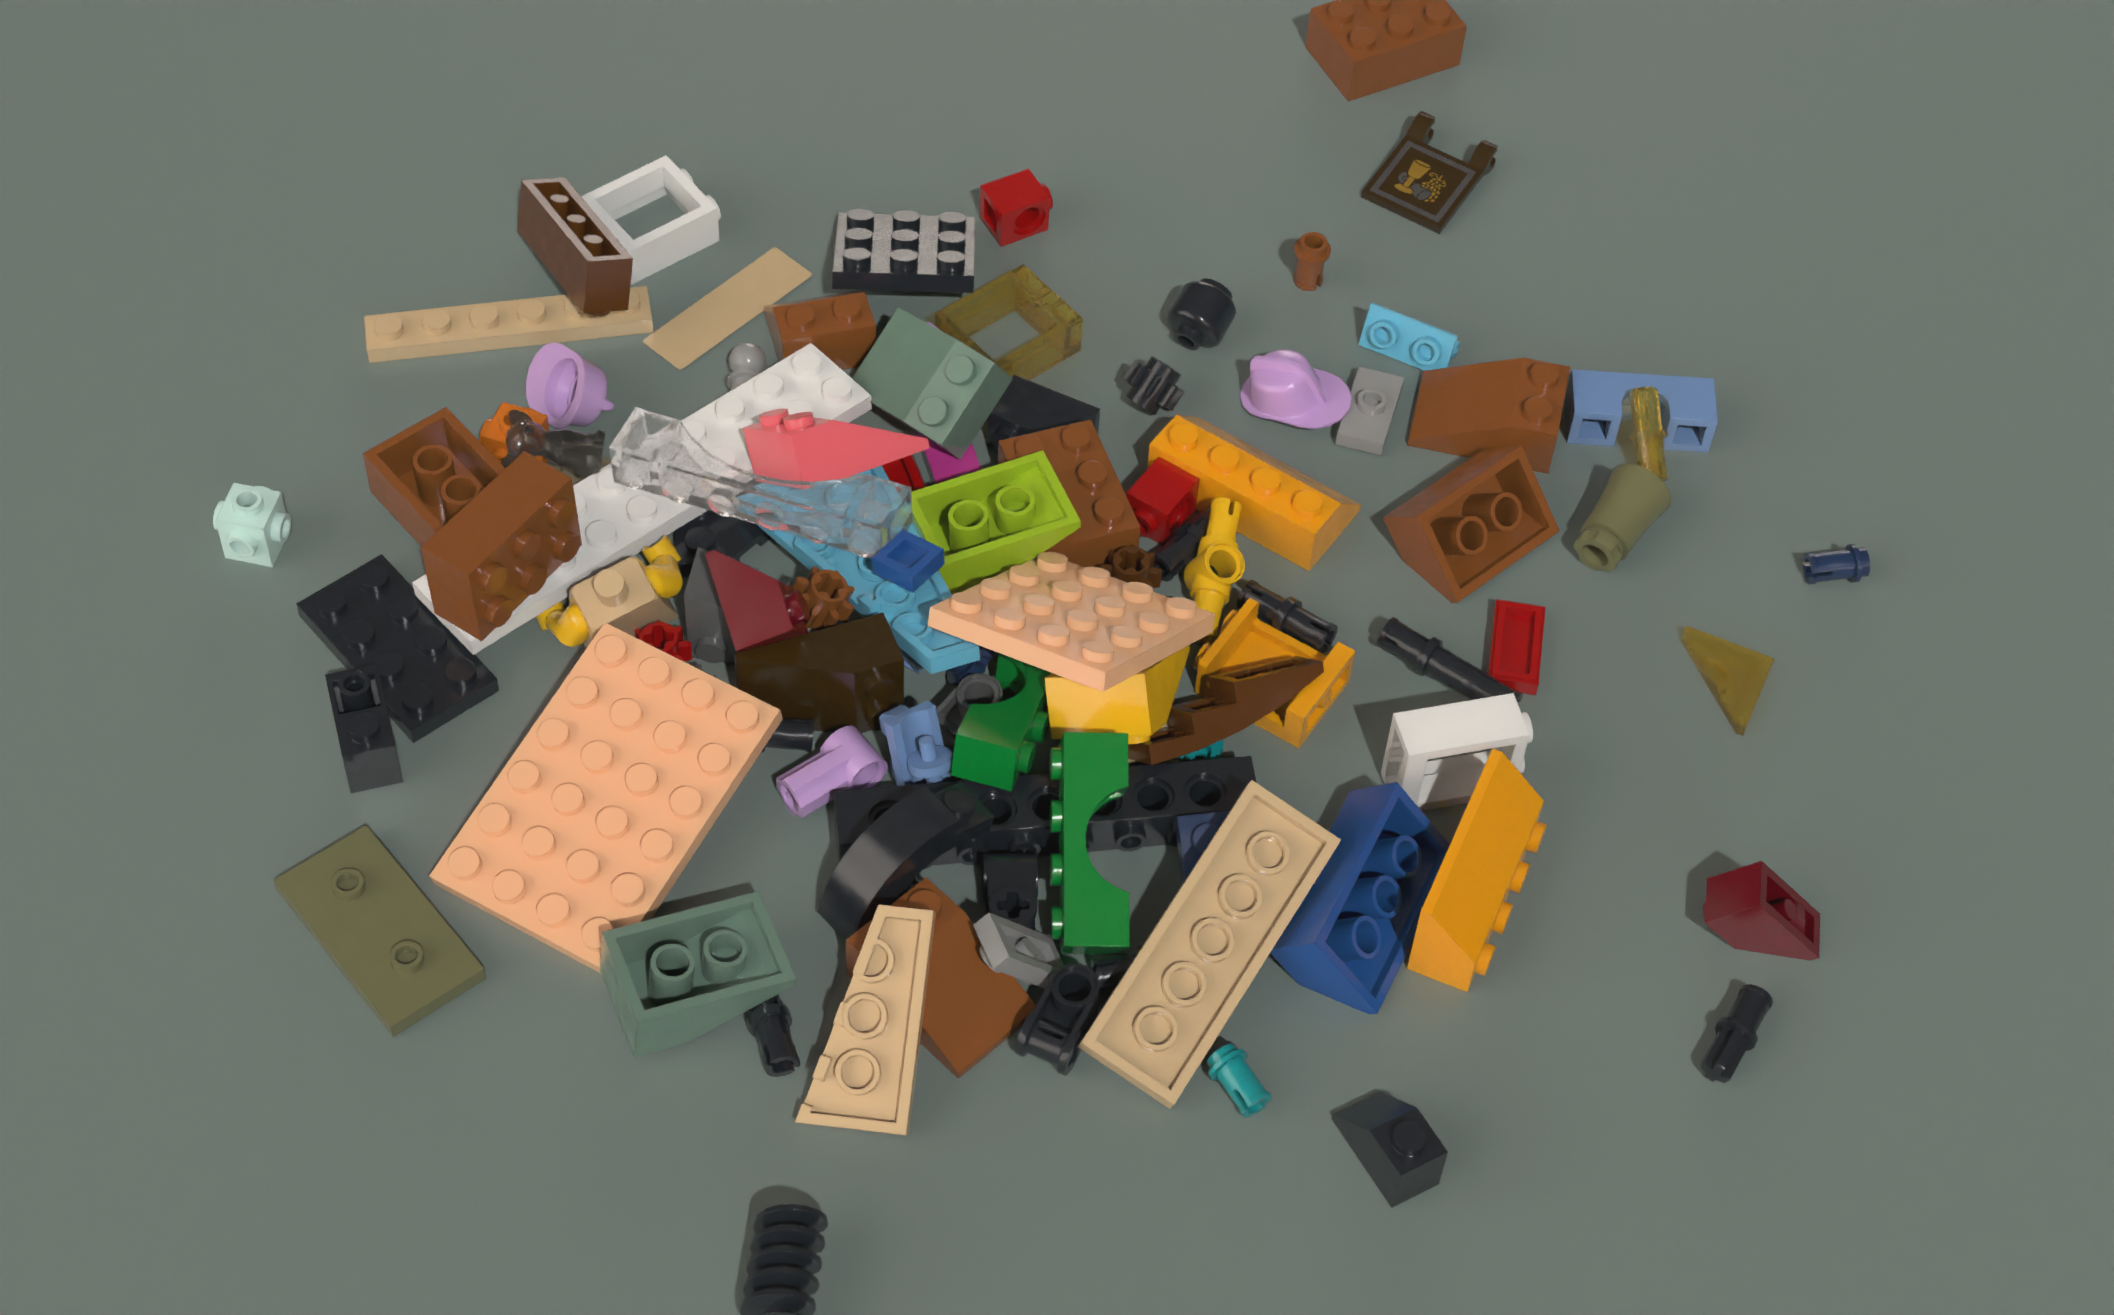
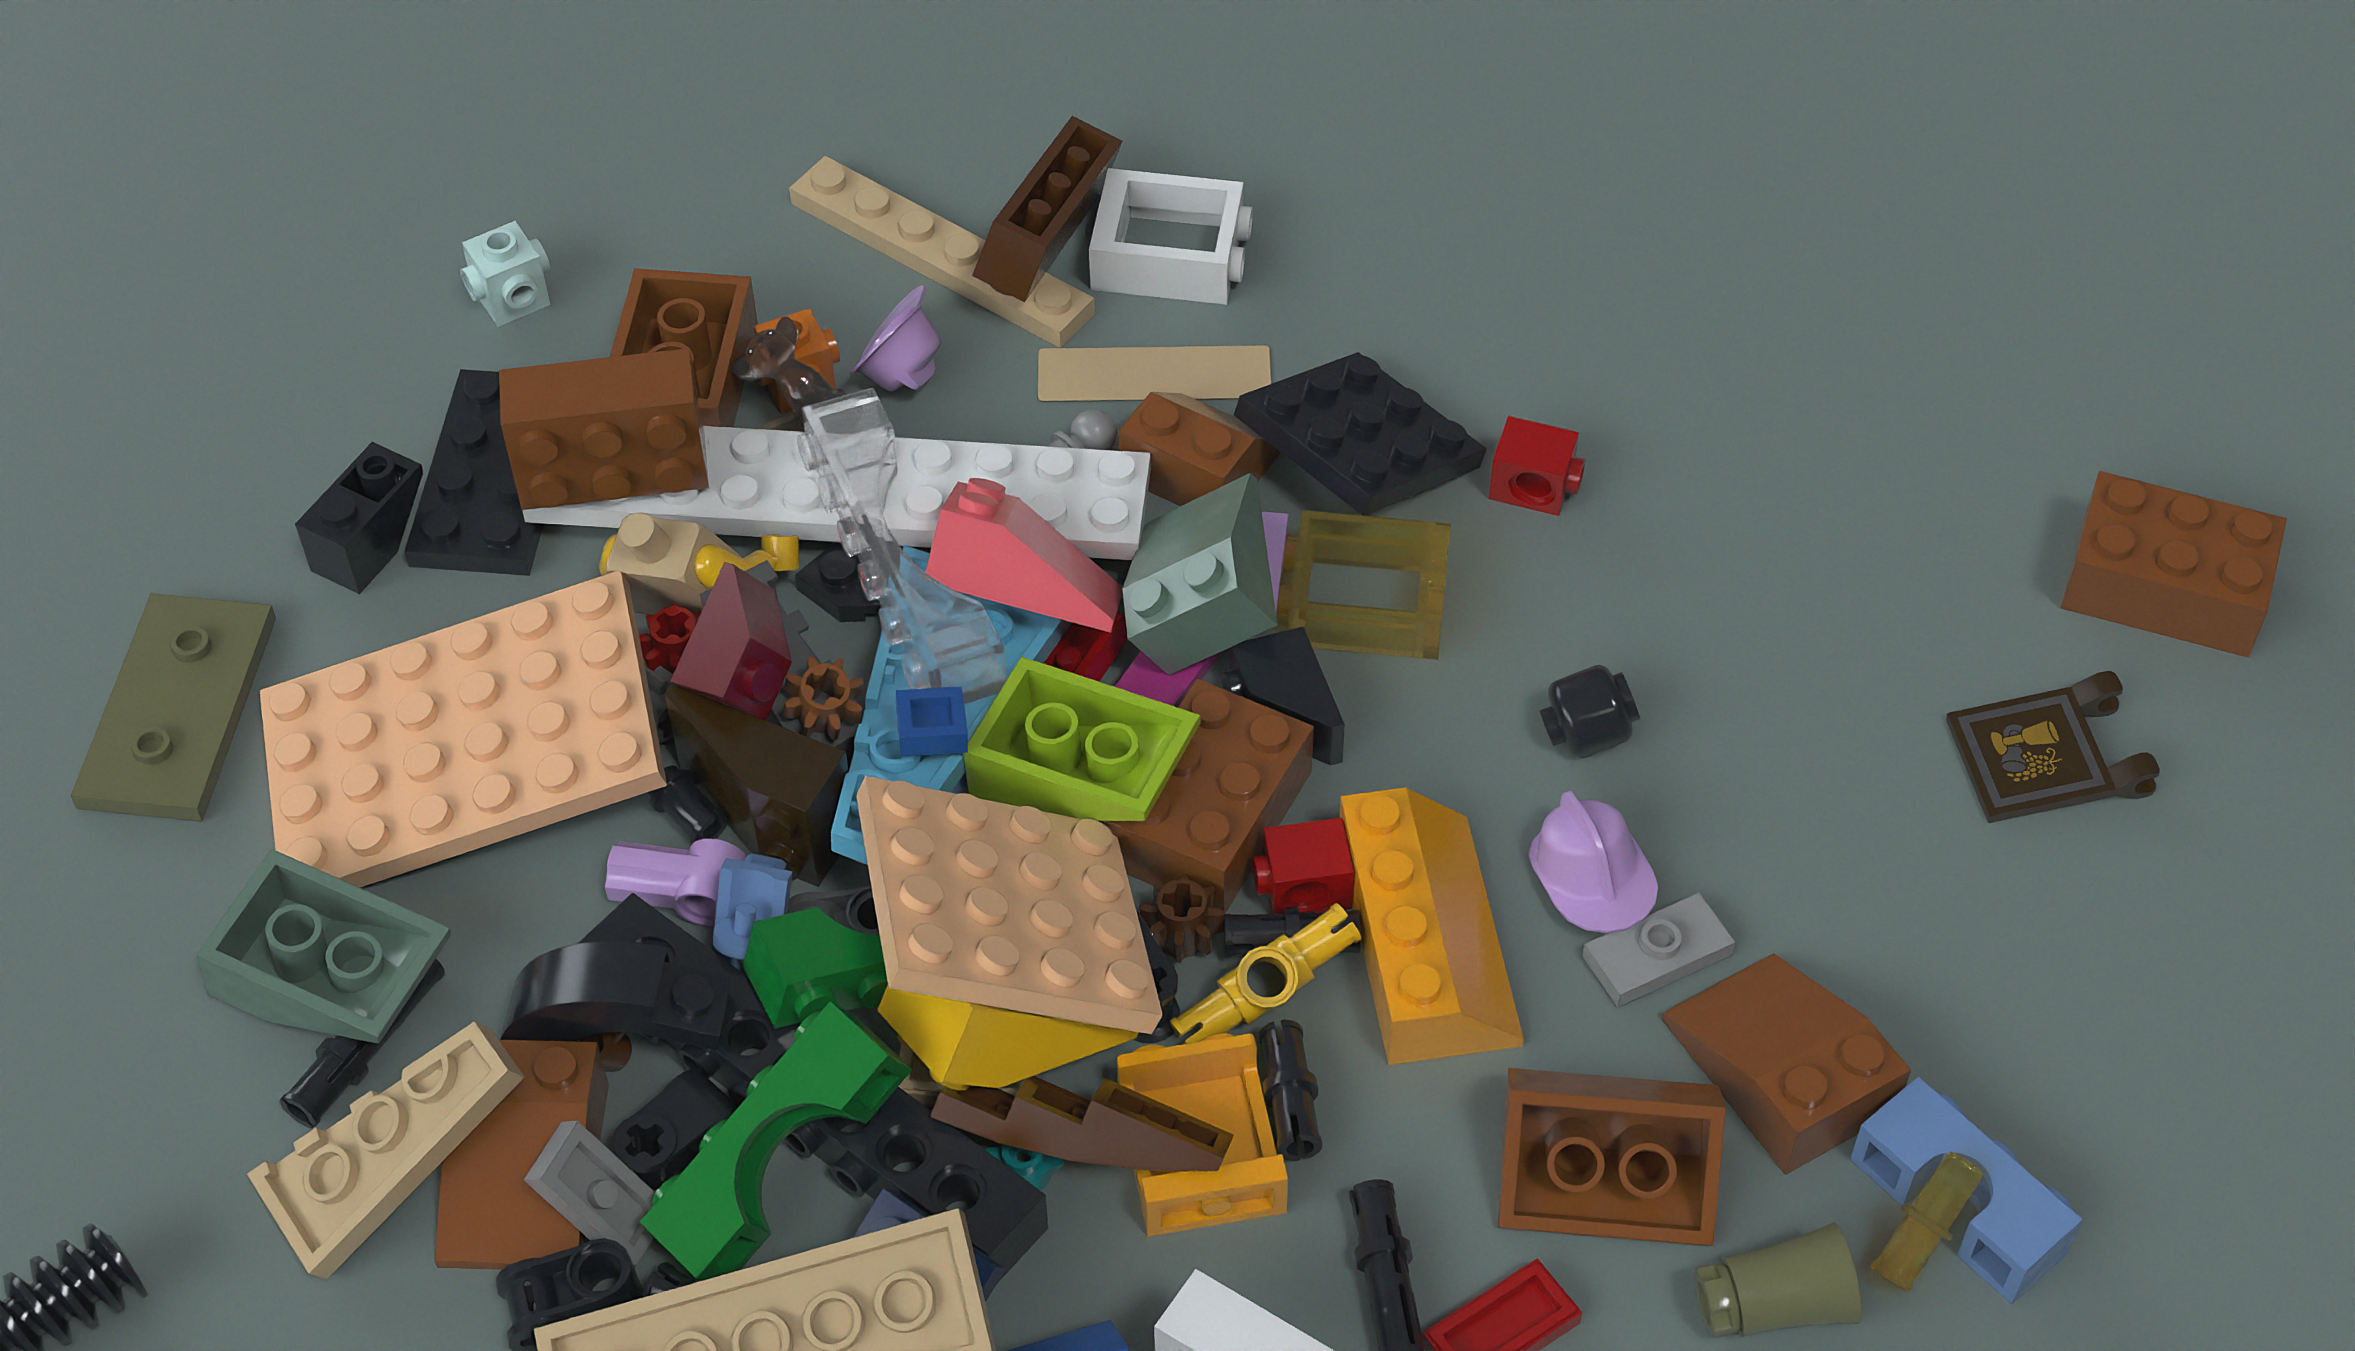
camera: 50 degrees right, 0 degrees up
(1153, 385) = (1445, 745): black gear -> none
(1311, 253) = (1780, 733): dark orange pin -> none
(1408, 339) = (1787, 898): medium azure hinge -> none

